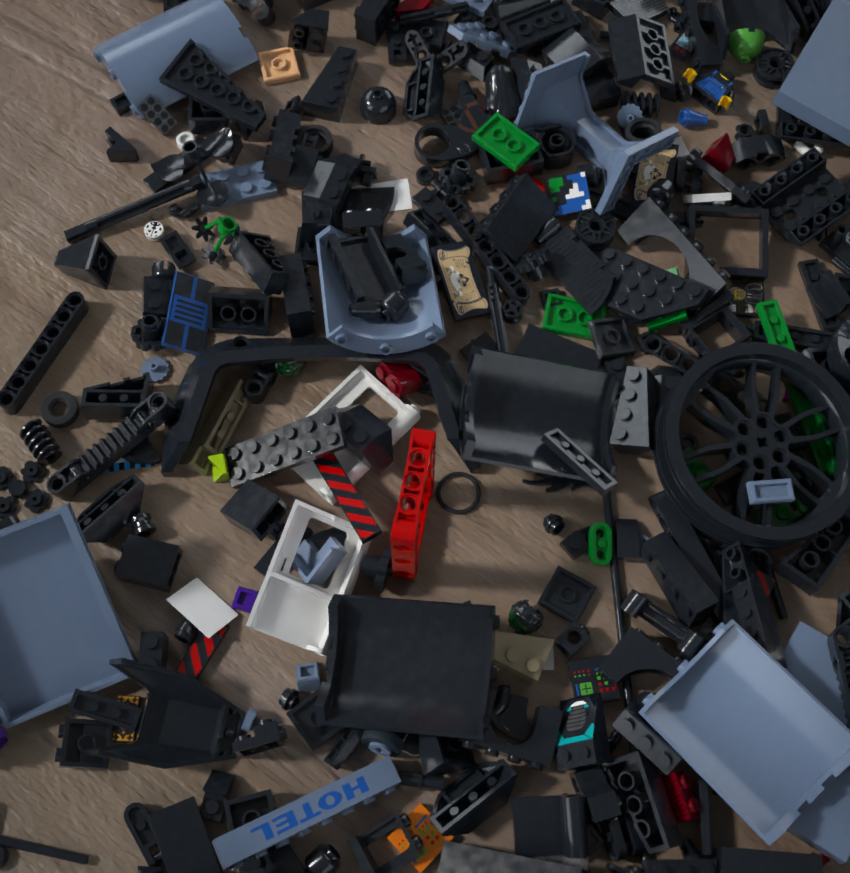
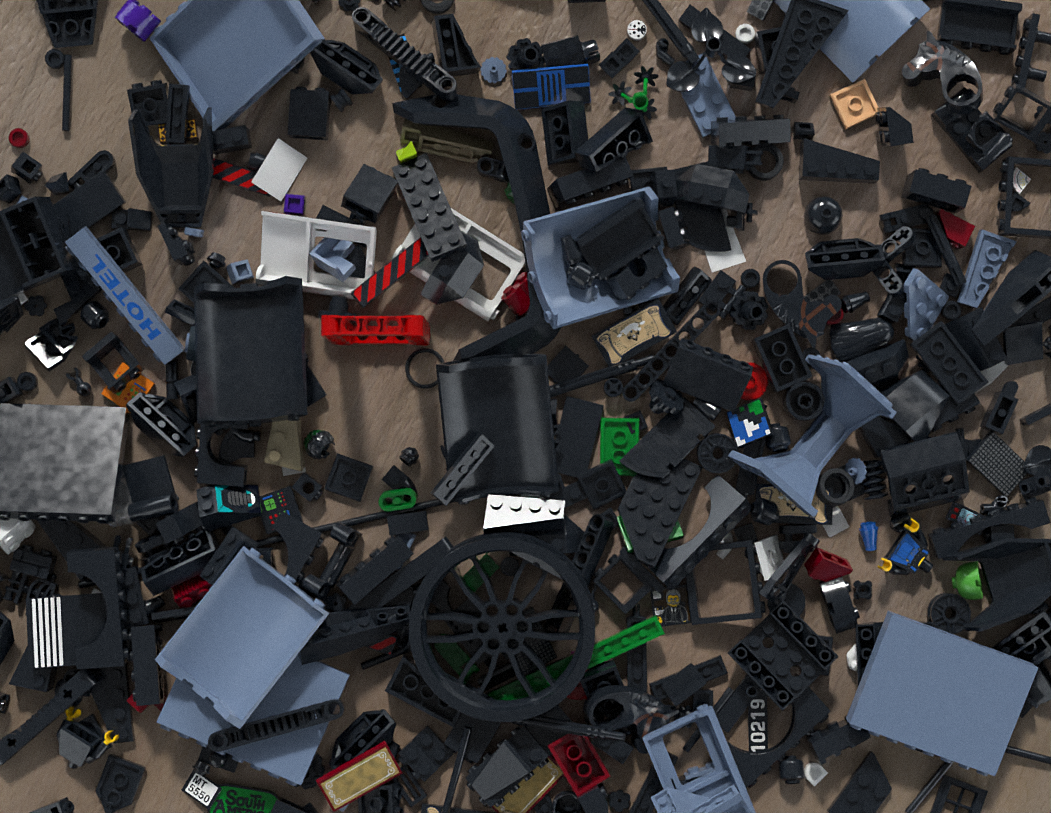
camera: 80 degrees right, 20 degrees up
(506, 141) = (791, 350): green tile -> none
(761, 122) = (876, 605): black tile -> none
(770, 491) = (453, 638): sand blue tile -> none

